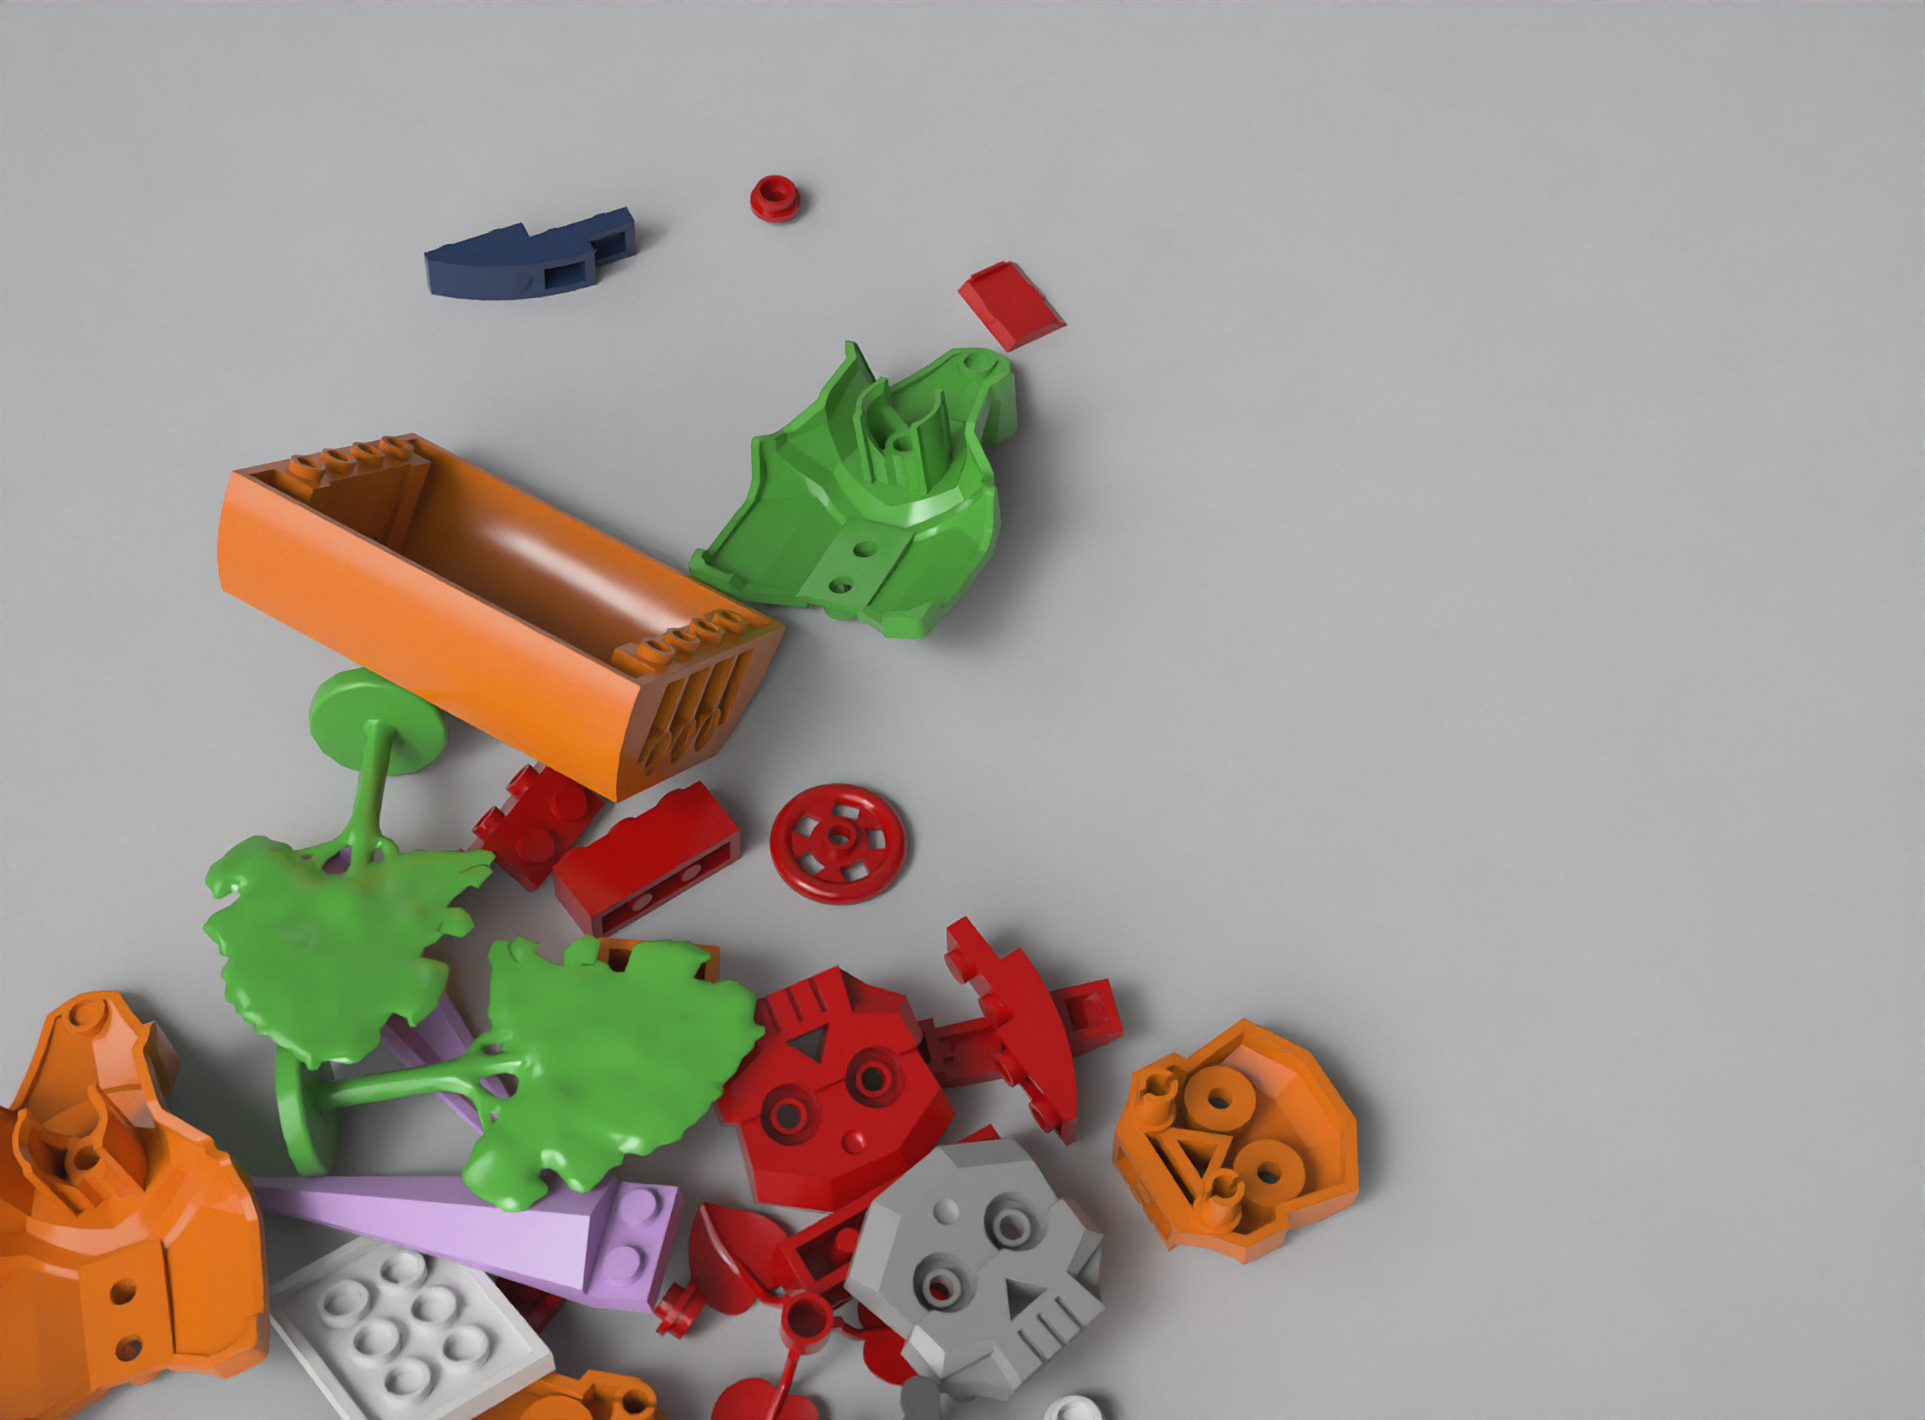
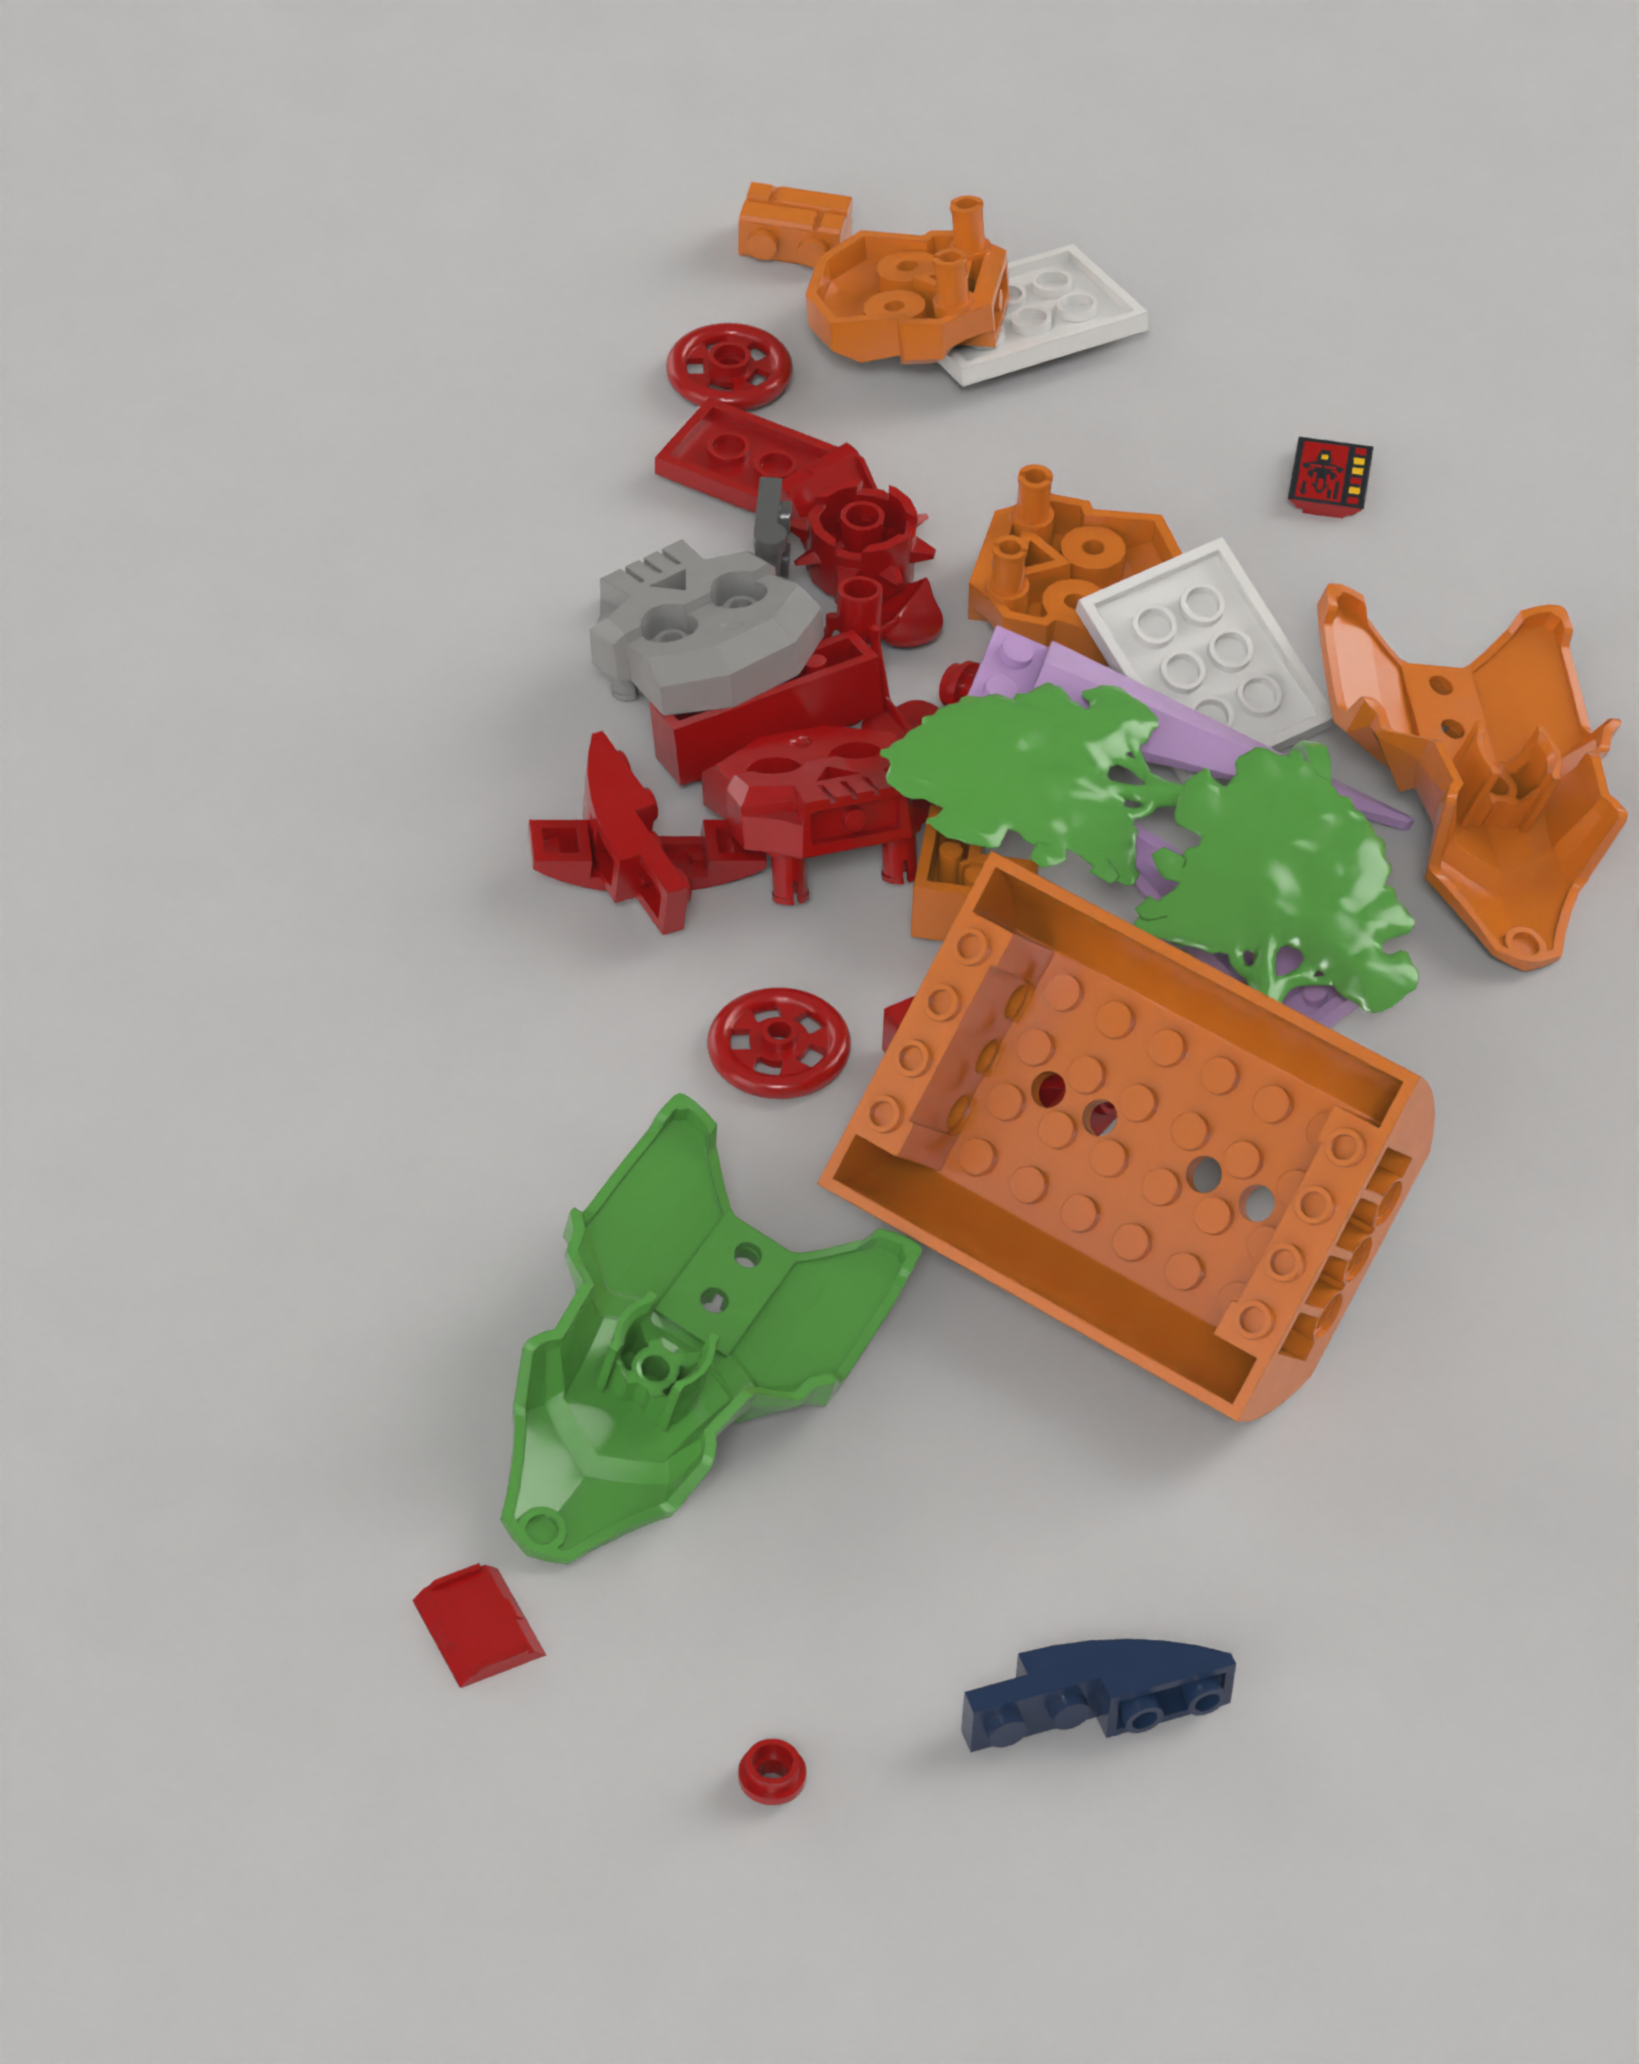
camera: 170 degrees left, 10 degrees down
(1278, 1121) = (440, 748): orange brick -> none

